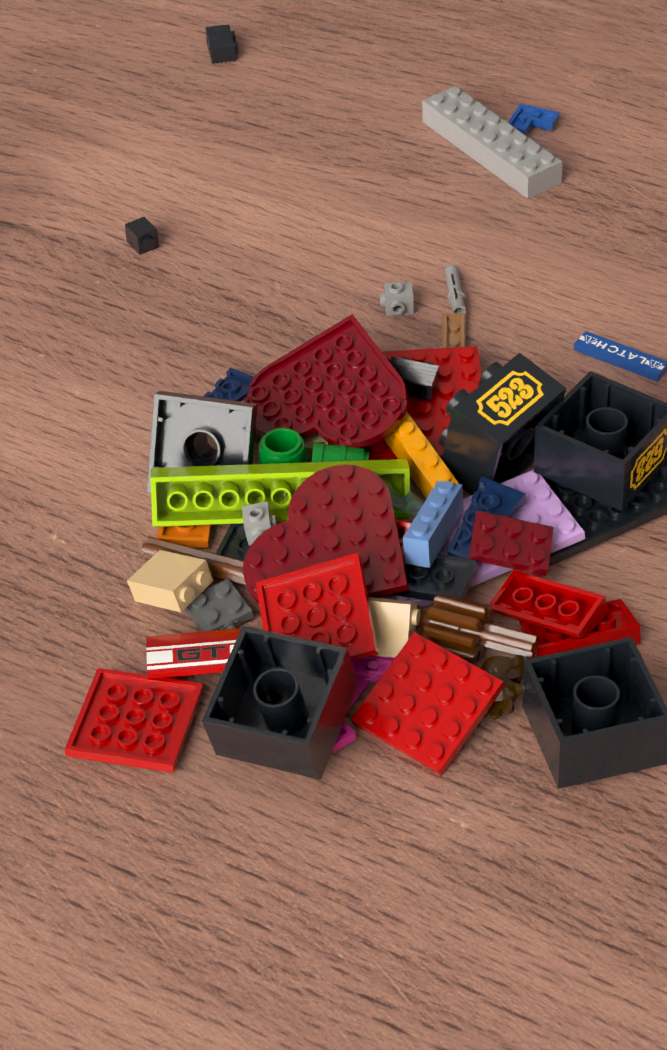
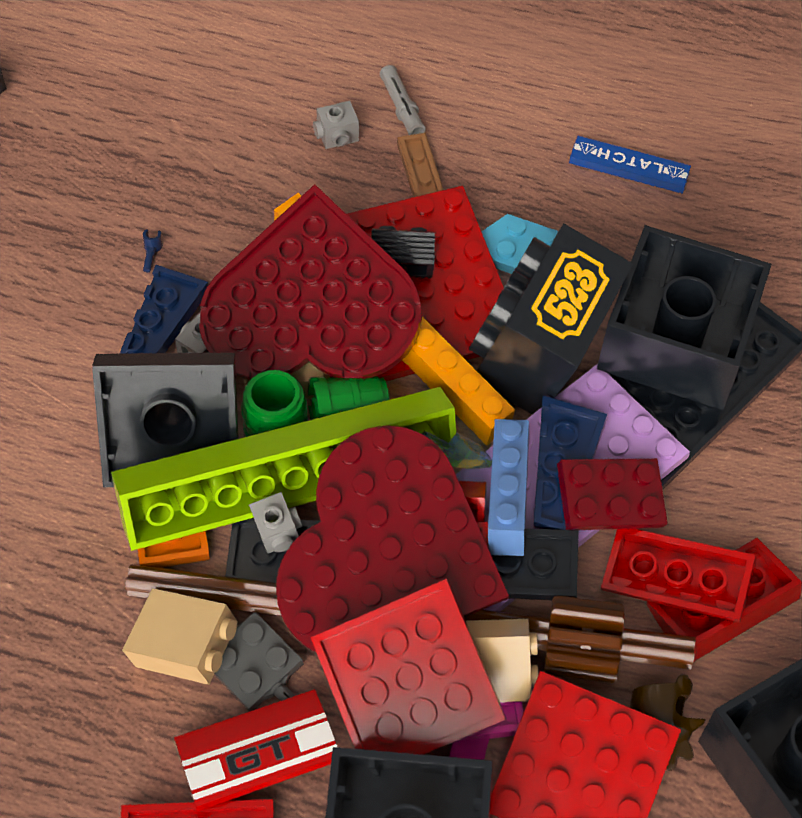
camera: 20 degrees left, 15 degrees up
(232, 356) = (151, 246): none -> dark blue hand

